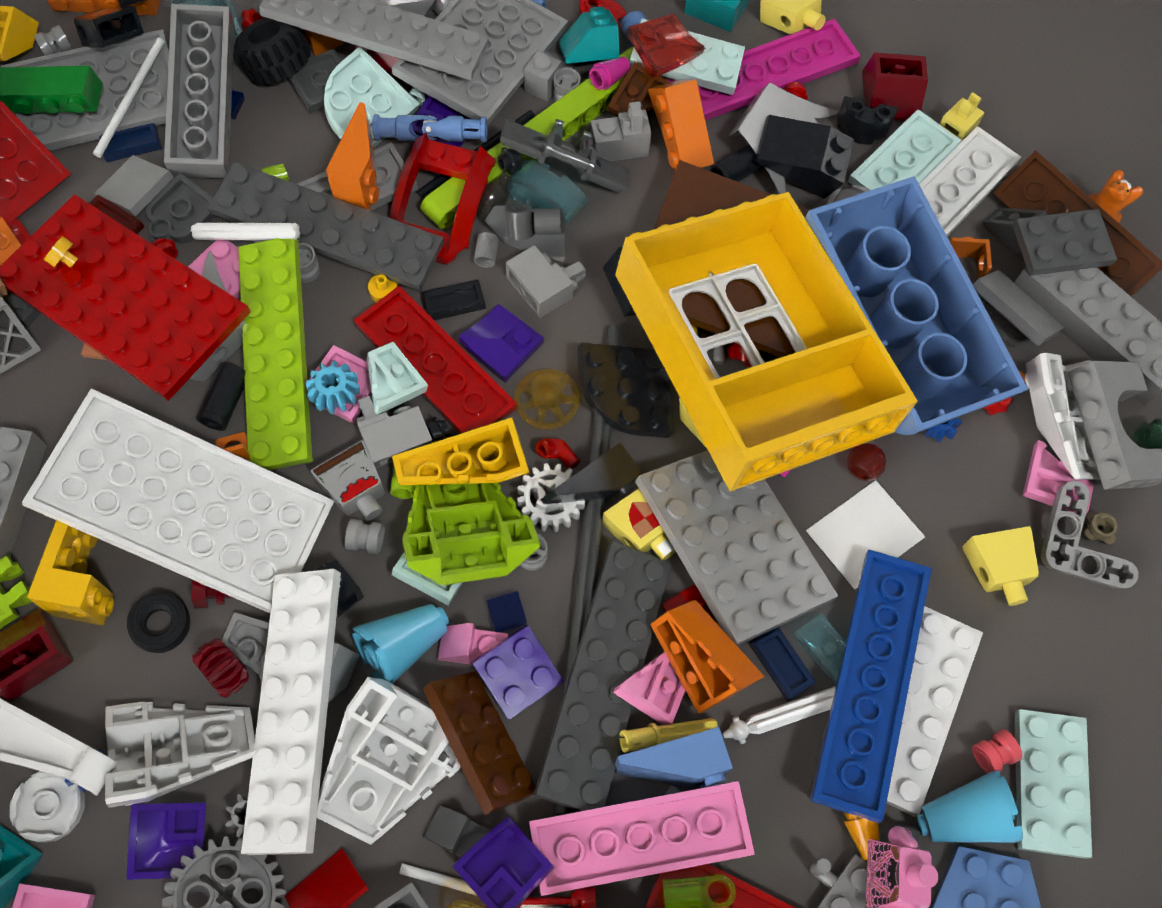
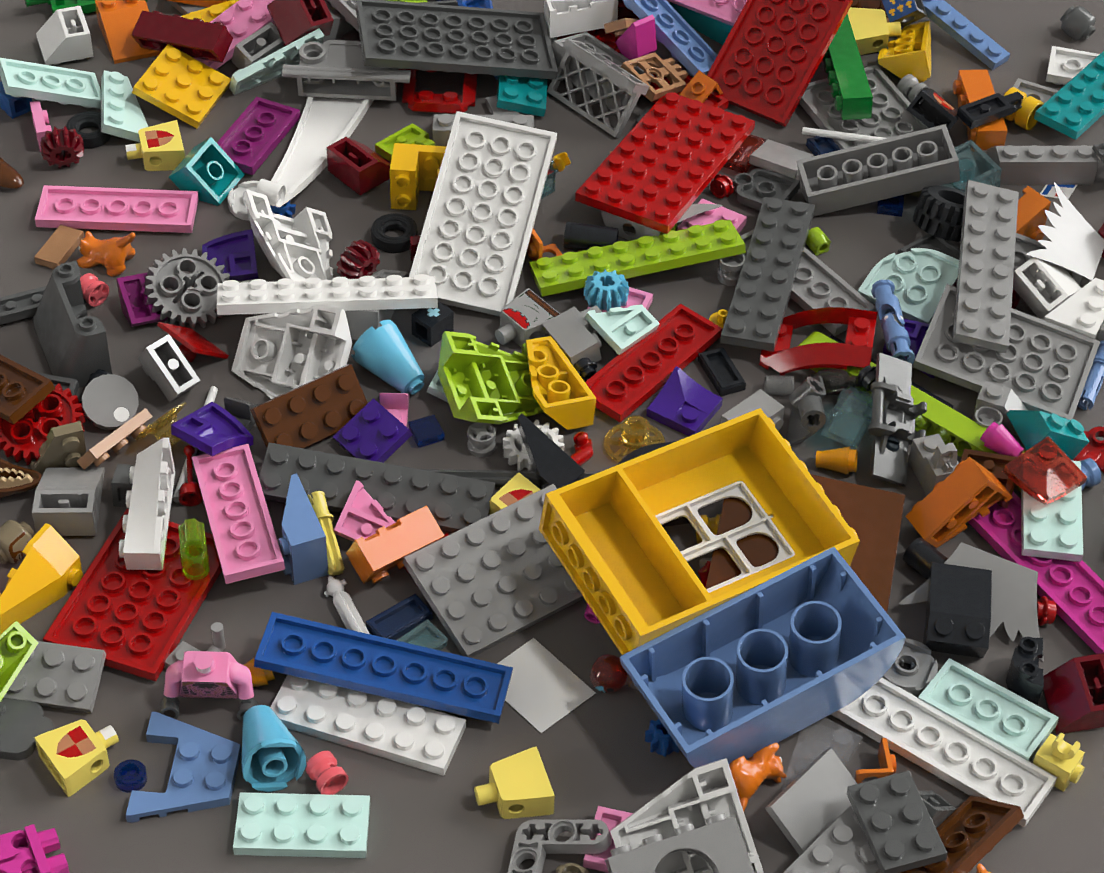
camera: 85 degrees right, 20 degrees down
(61, 252) = (687, 114): yellow tile -> none
(245, 231) = (746, 222): white axle -> none
(353, 164) = (834, 272): orange slope -> none
(364, 536) = (482, 328): light grey wheel -> none
(598, 213) = (839, 460): none -> light orange cone

